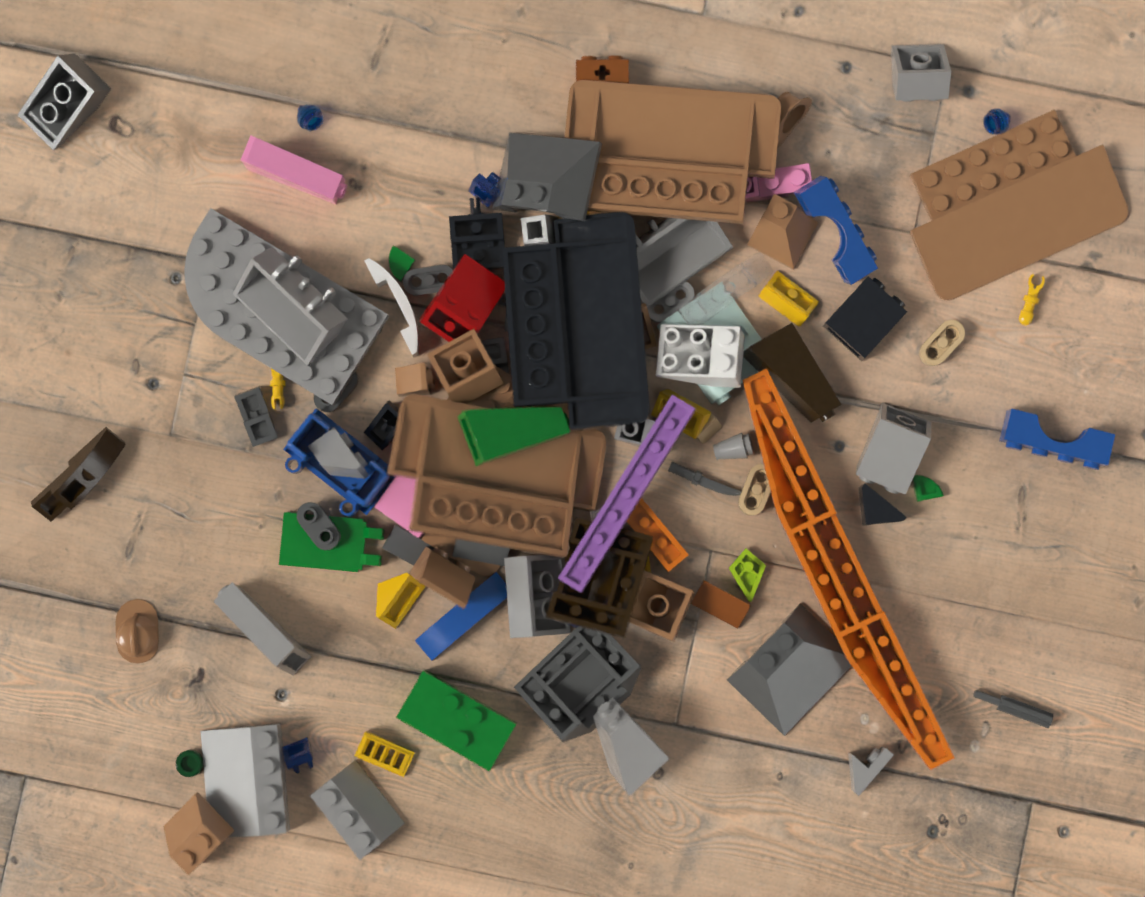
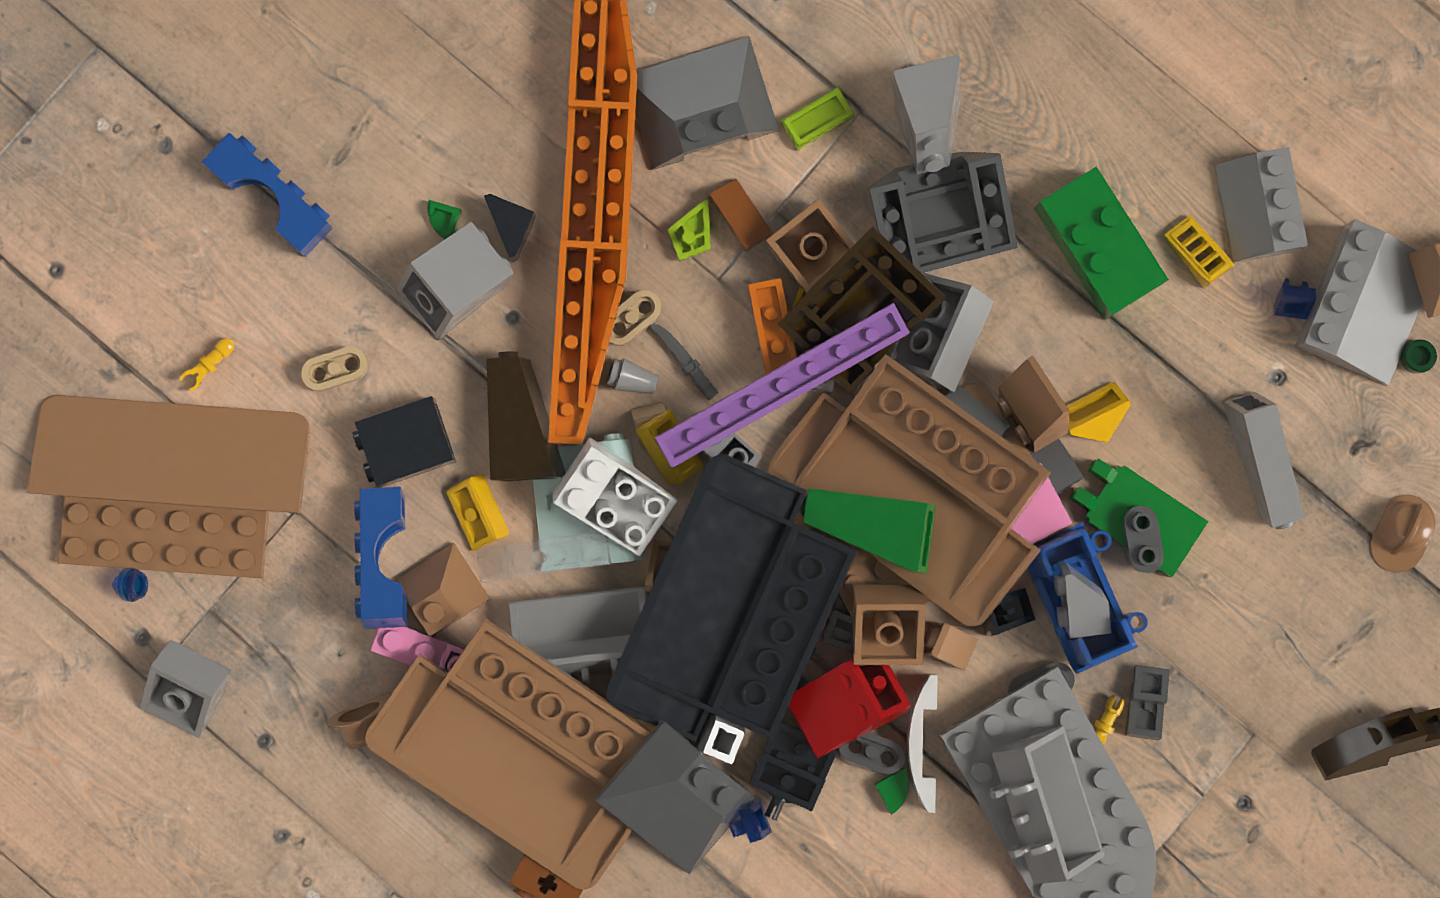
camera: 160 degrees left, 0 degrees up
(460, 620) = (1048, 349): blue slope -> none
(671, 303) = (612, 576): light grey plate -> none
(703, 702) = (817, 118): none -> lime tile

